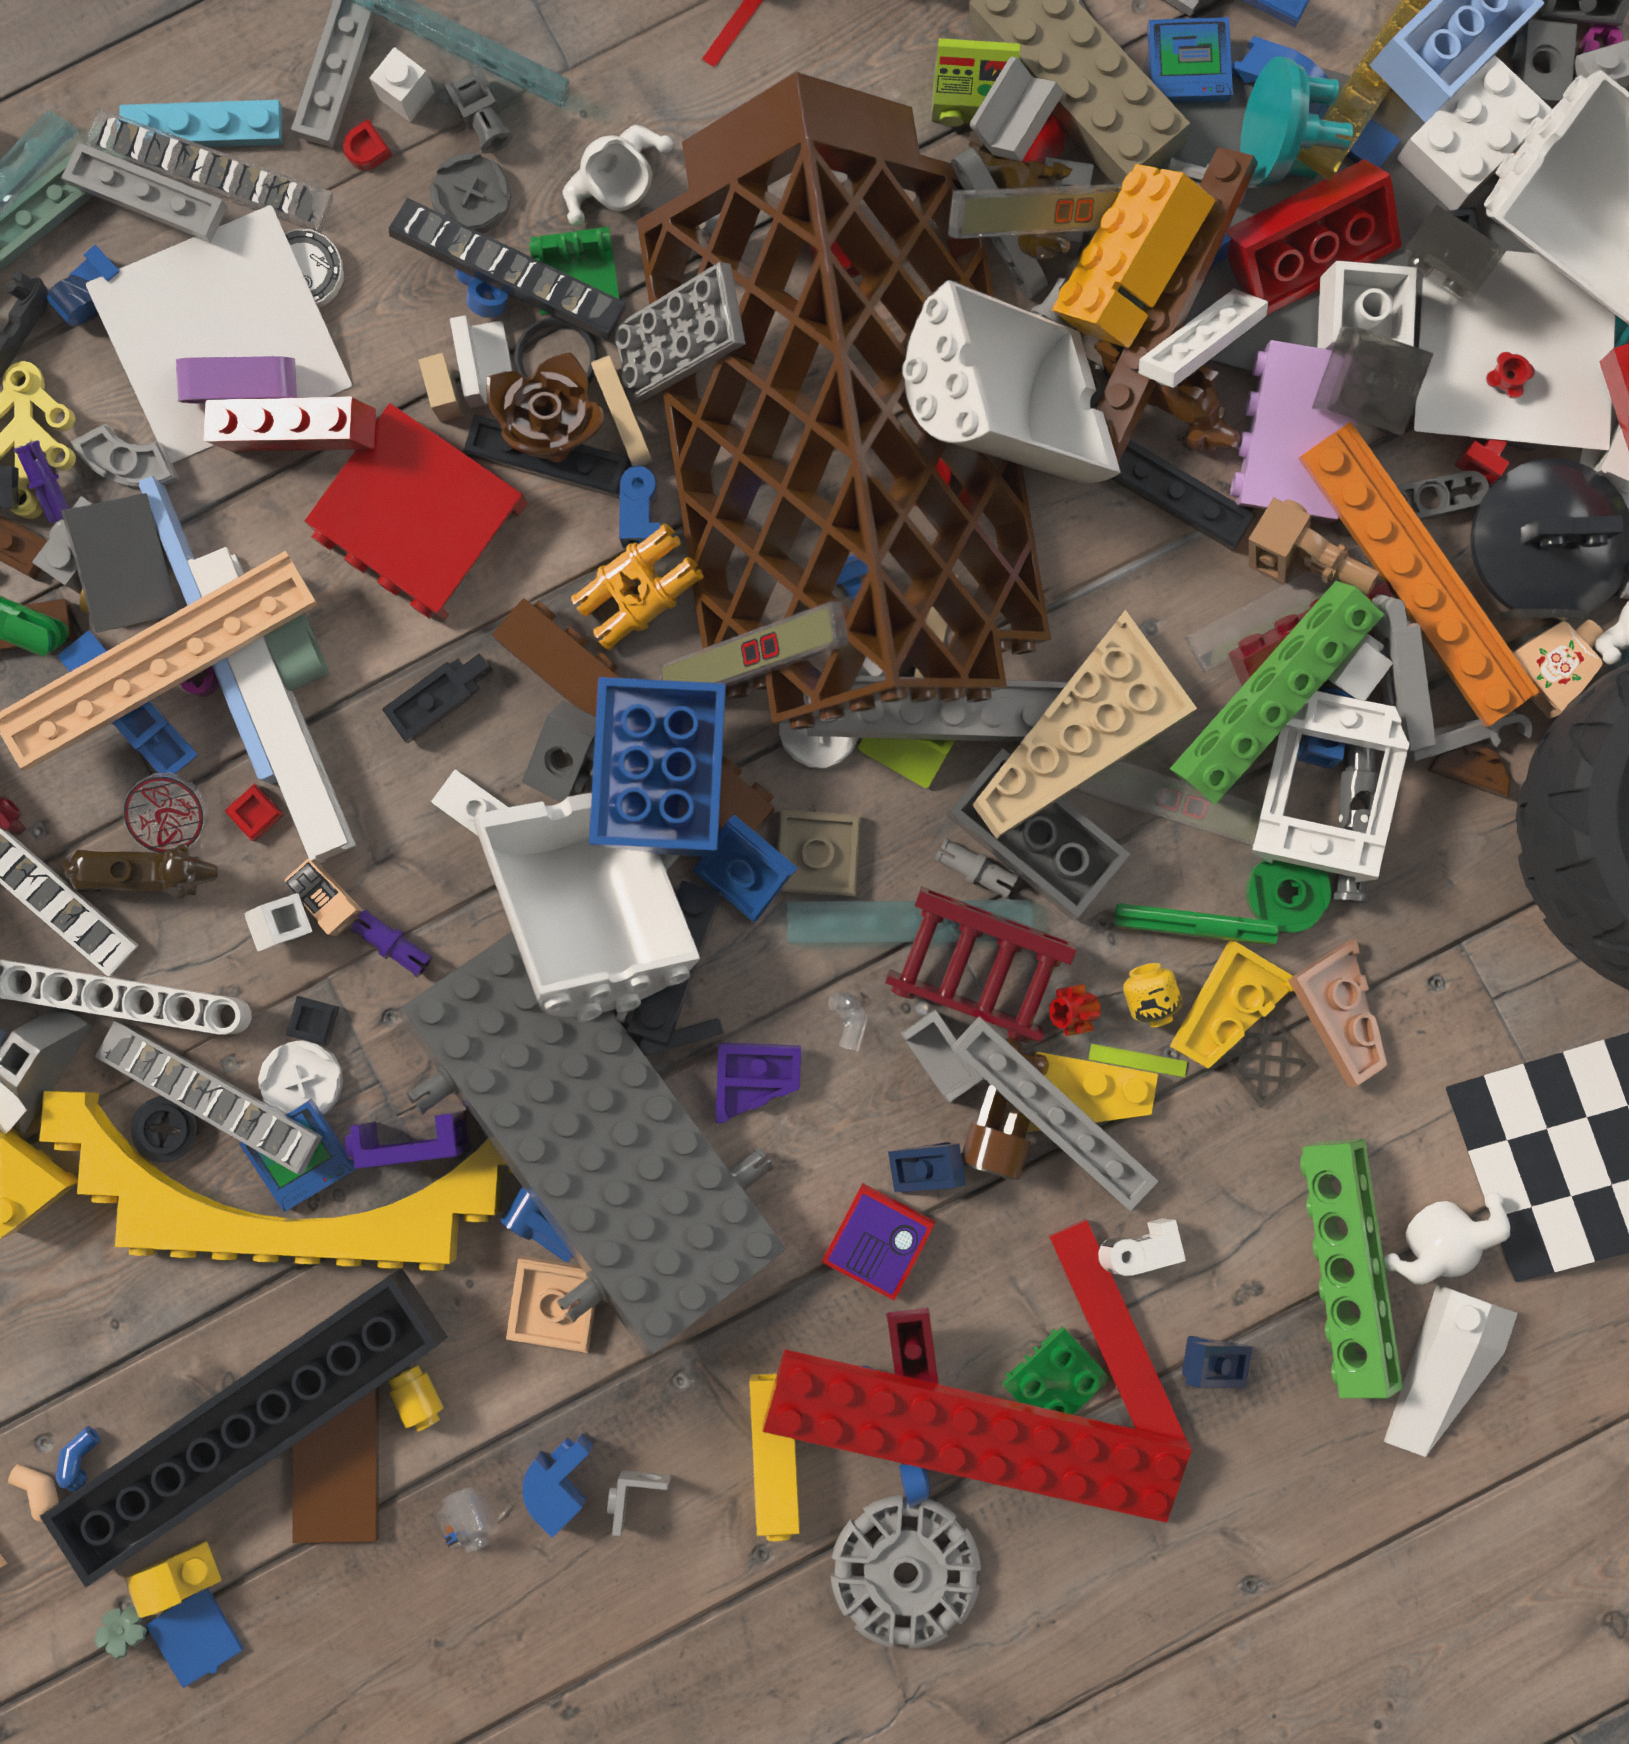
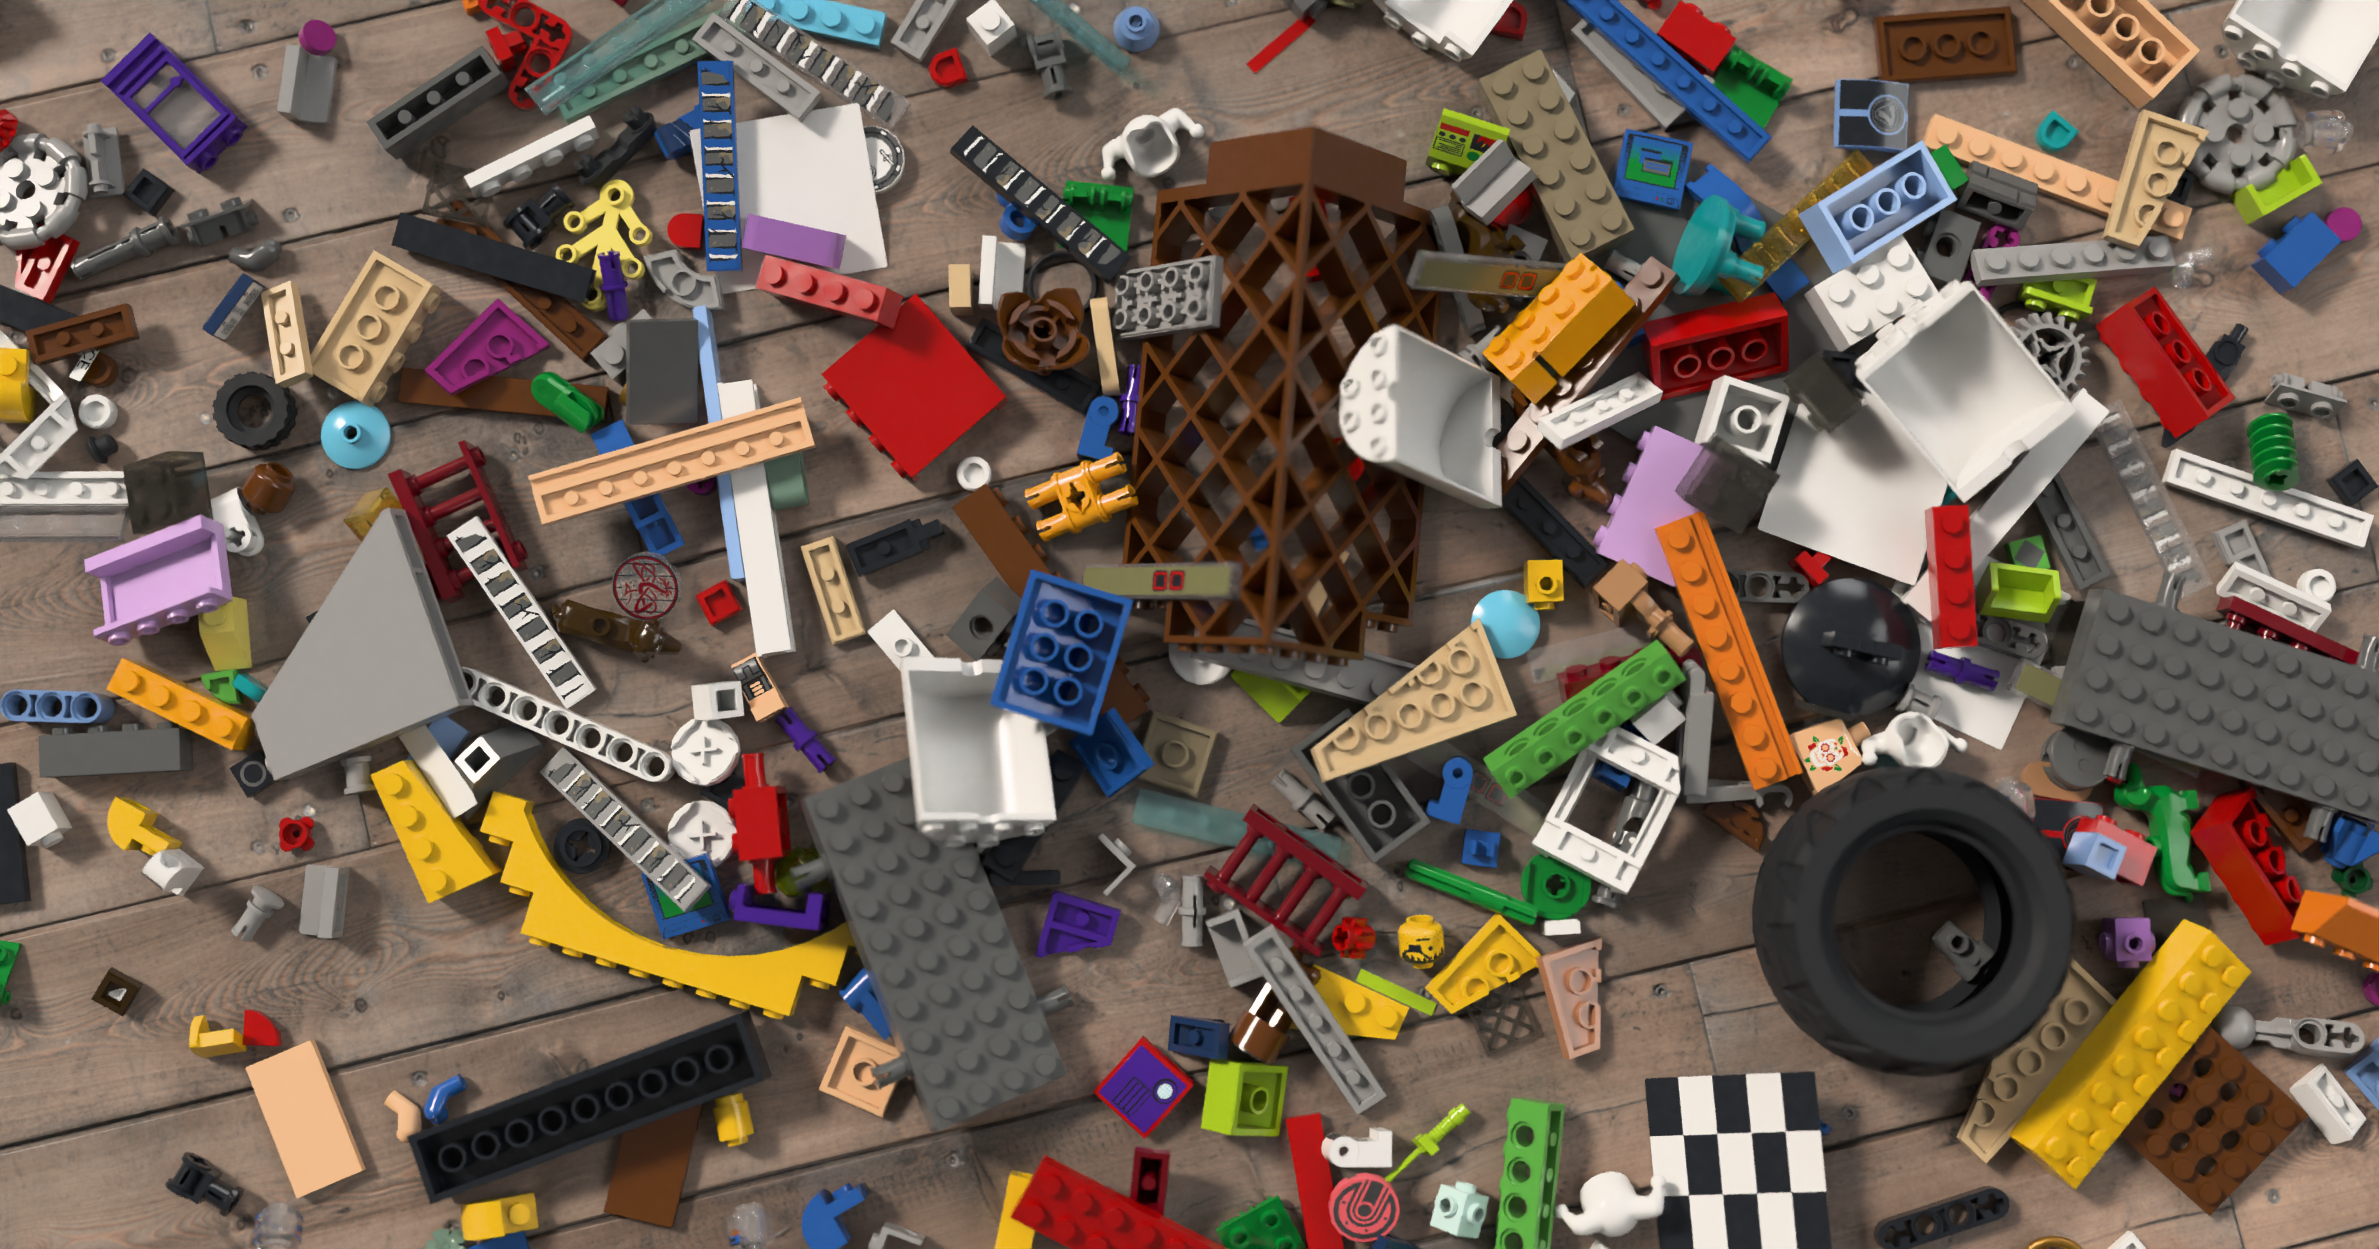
camera: 10 degrees right, 0 degrees up
(113, 401) = (686, 231): none -> red tile
(129, 313) = (719, 165): none -> tile
(279, 985) = (705, 751): none -> white tile
(361, 1050) = (760, 823): none -> red brick
(381, 765) = (833, 590): none -> tan tile
(405, 1109) = (783, 878): none -> clear neon green head
(471, 191) = (1026, 129): dark grey tile -> none
(507, 591) = (973, 473): none -> white tile
(567, 48) = (1132, 36): none -> medium blue cone
(665, 467) = (1129, 401): none -> dark purple pin
(785, 979) = (1122, 852): none -> light grey bracket
(882, 1025) = (1192, 910): none -> light grey pin
(996, 1224) = (1244, 1097): none -> lime slope
(1147, 813) = (1457, 781): none -> blue leg
(1159, 608) = (1508, 623): none -> medium azure dish
(1166, 1315) = (1364, 1207): none -> tile
(1187, 554) = (1543, 583): none -> yellow brick
(1191, 872) = (1480, 848): none -> blue tile
(1216, 1225) = (1428, 1142): none -> lime sword
(1275, 1290) = (1459, 1209): none -> light aqua brick
(1306, 938) = (1560, 927): none -> white tile
(1515, 364) = (1853, 494): red plate -> none

